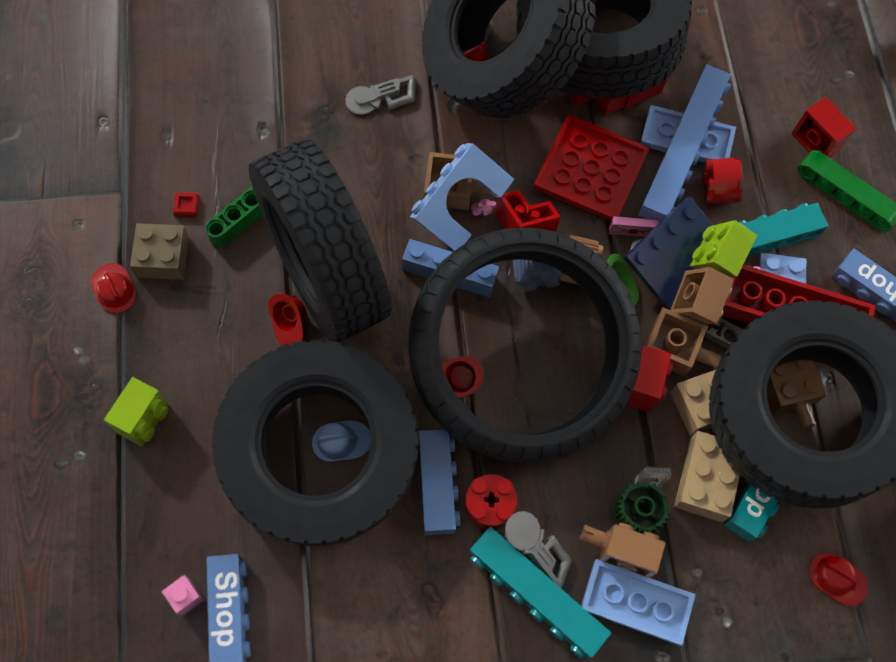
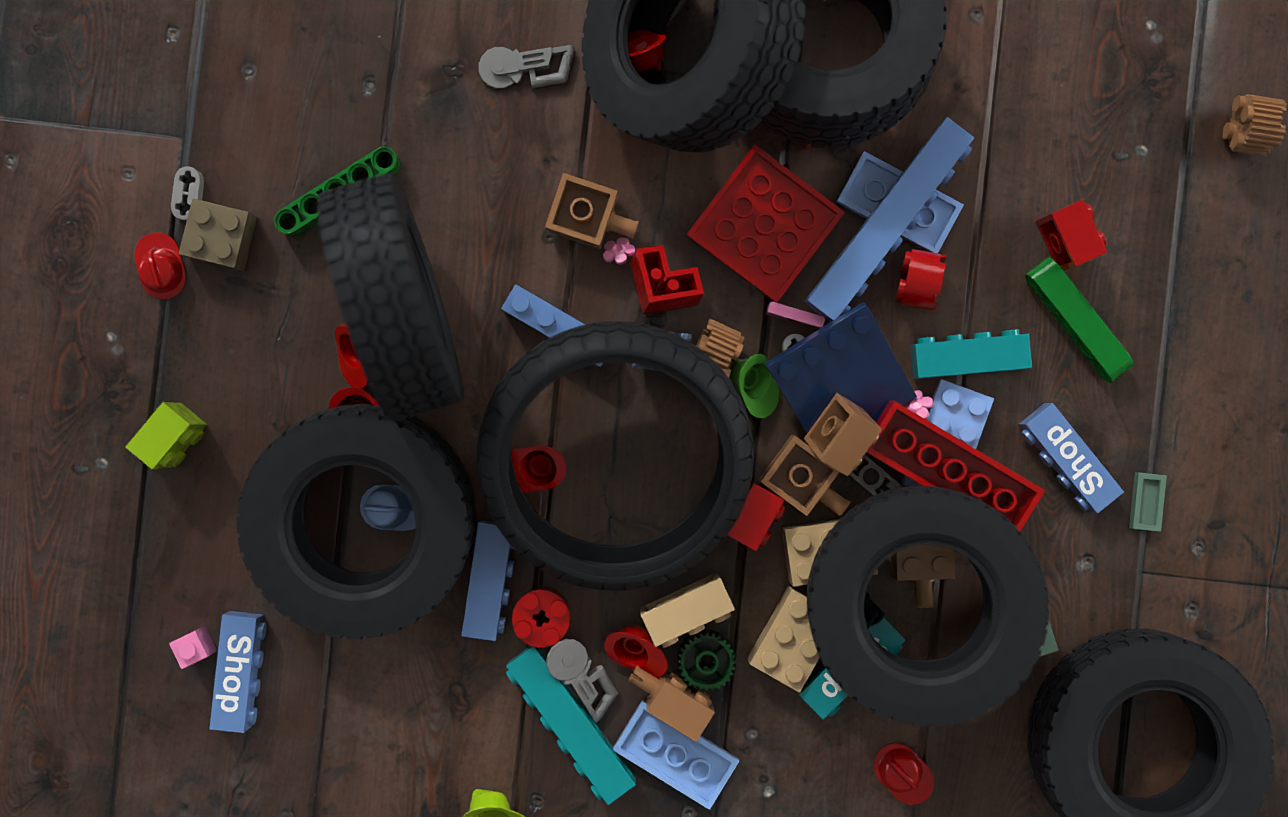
camera: 15 degrees right, 20 degrees up
(124, 228) = (180, 190): none -> light grey beam
(186, 205) = (259, 173): red tile -> none
(432, 210) = (601, 210): light blue arch -> none
(576, 510) = (635, 647): none -> red piece
(614, 467) = (687, 610): none -> tan brick
(654, 475) = (727, 631): clear tile -> none
(724, 248) = (884, 385): lime brick -> none

